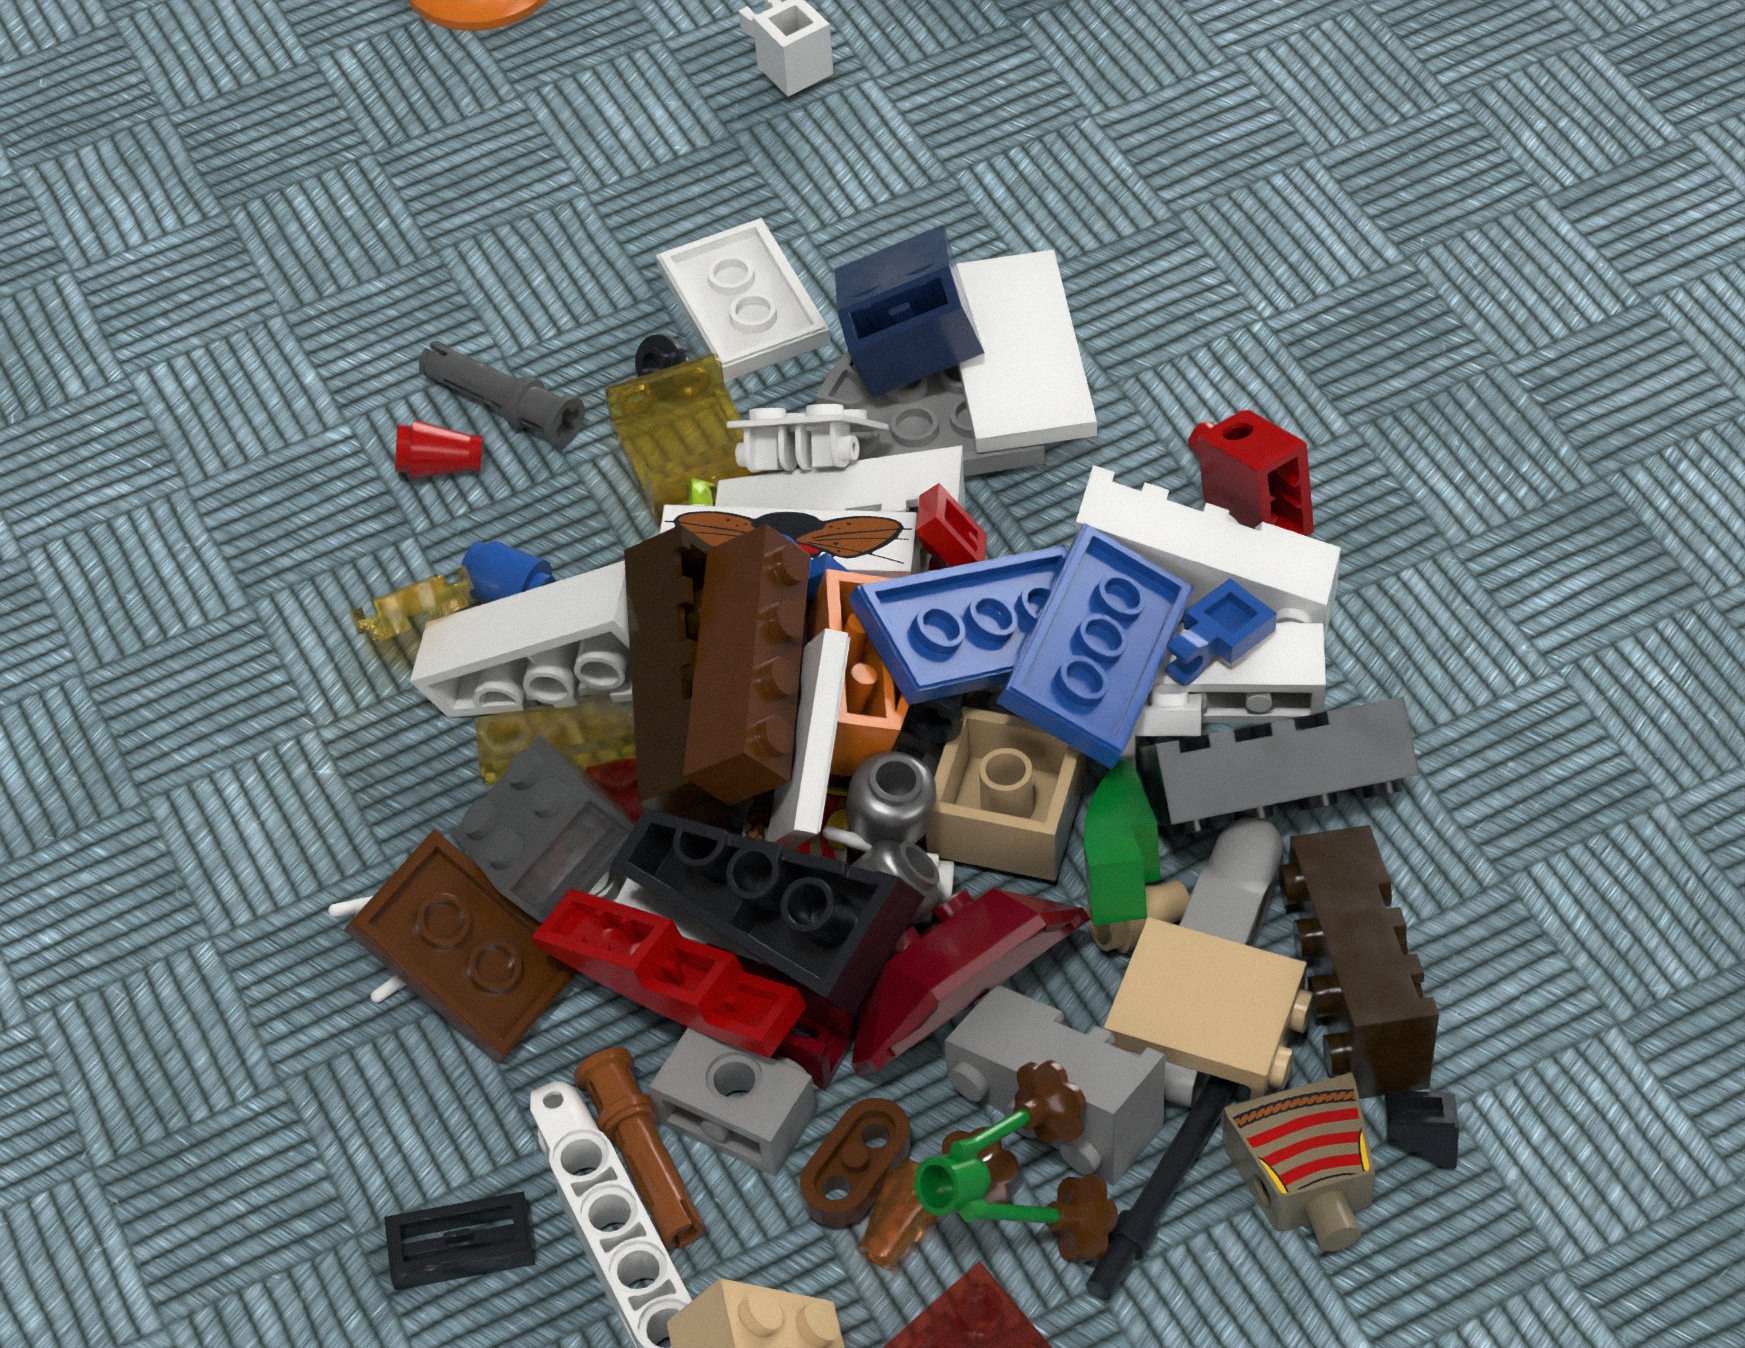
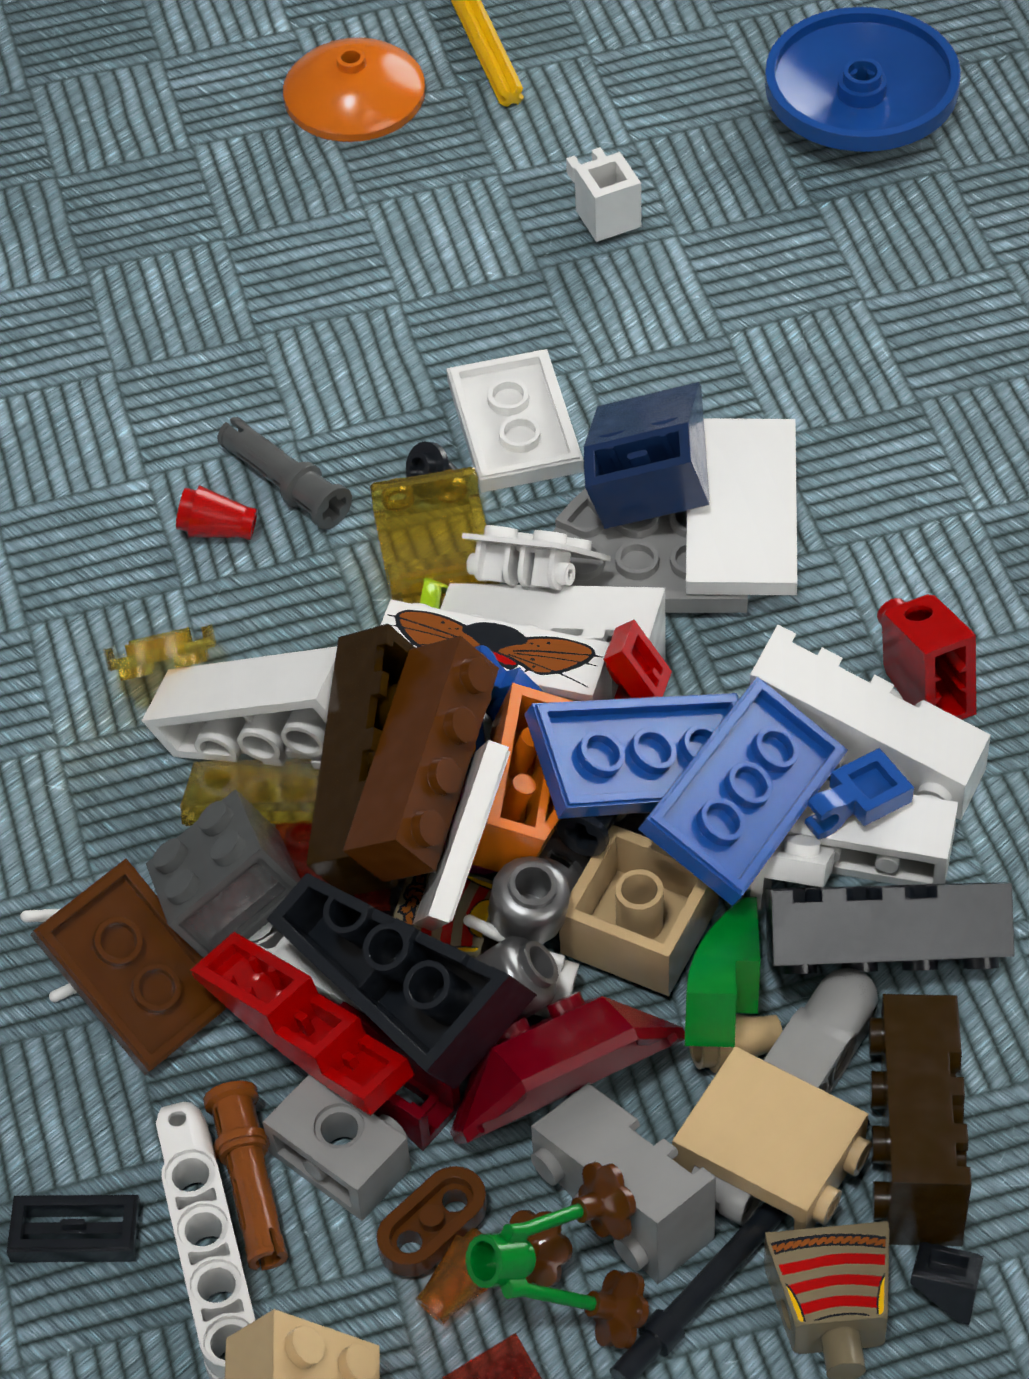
camera: 10 degrees right, 0 degrees up
(504, 571) = (247, 635): blue brick -> none

